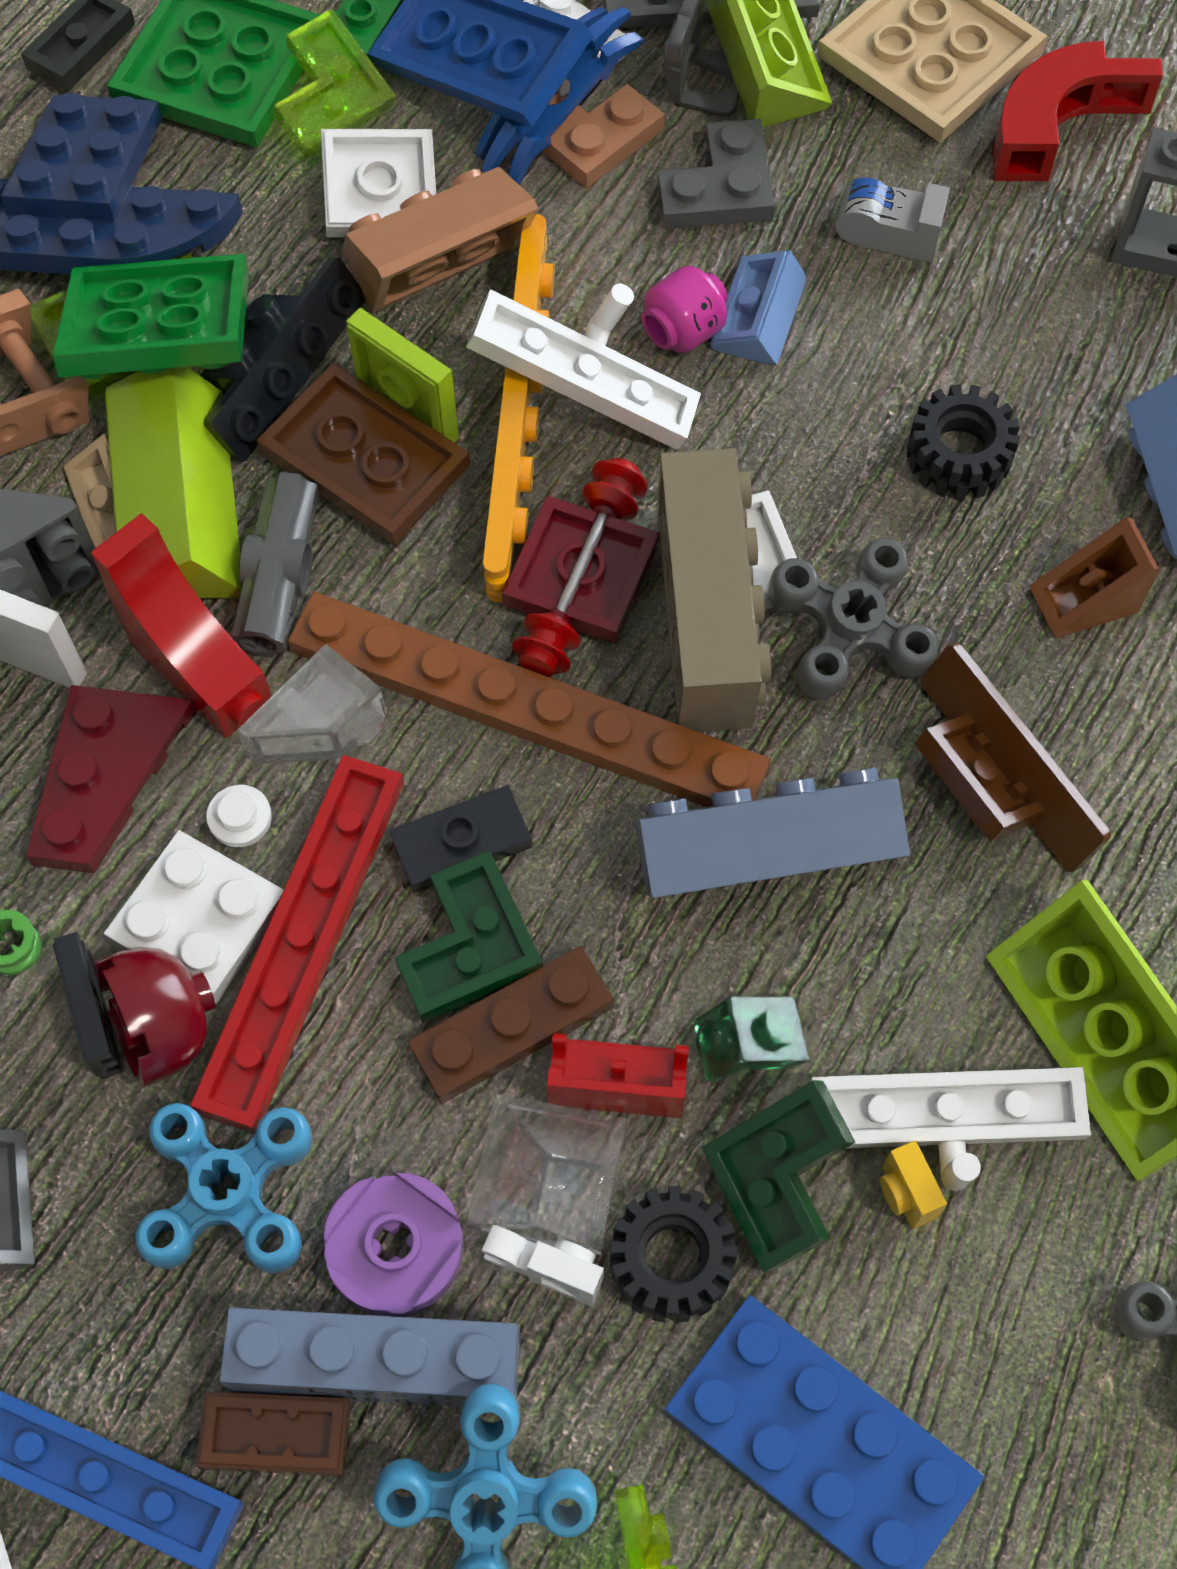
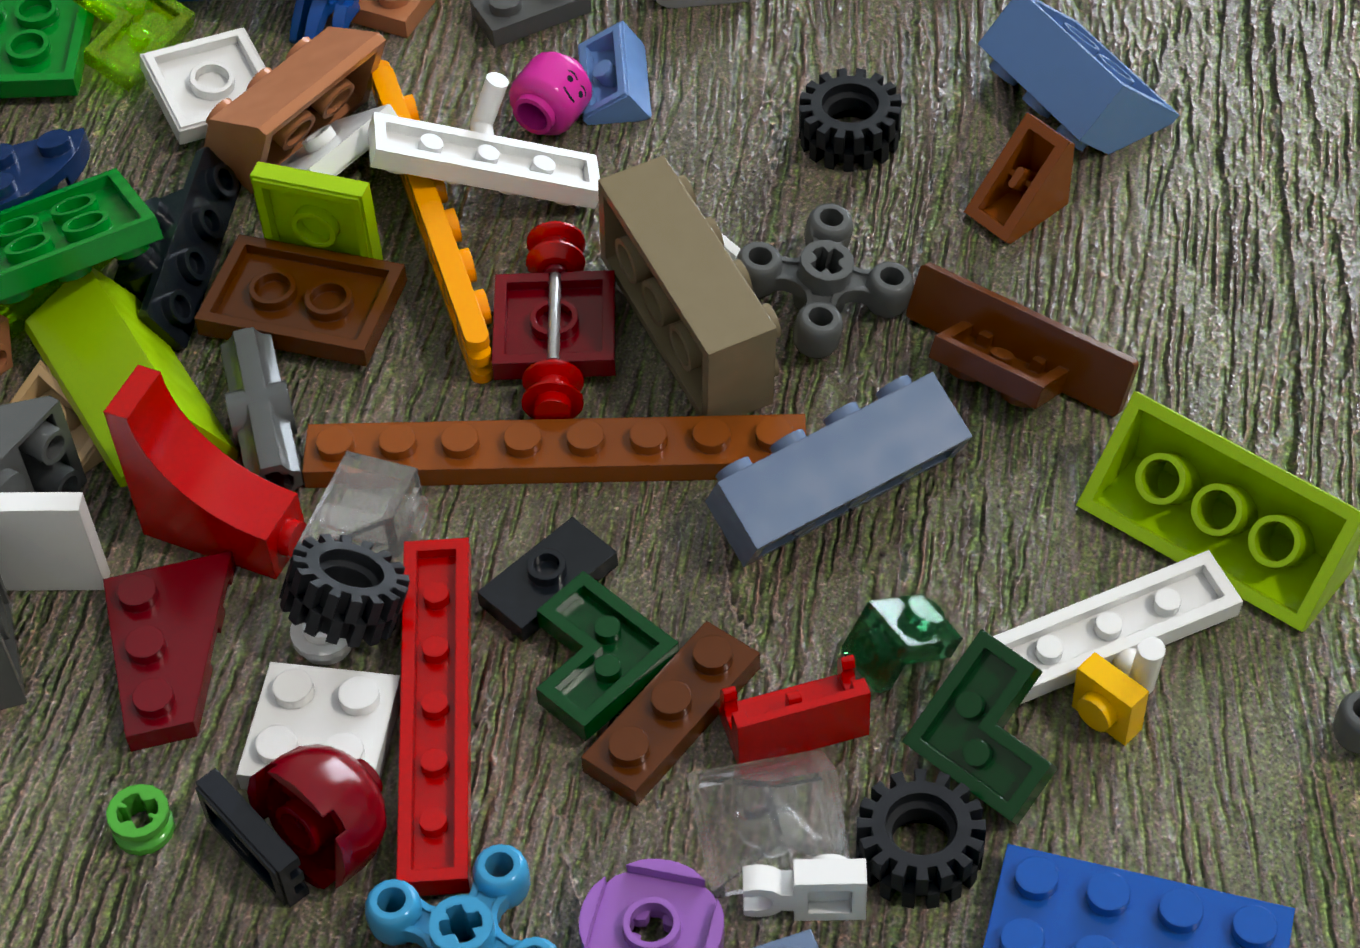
camera: 20 degrees left, 15 degrees down
(246, 814) = (344, 590): none -> black tyre
(446, 303) = (336, 144): none -> white plate

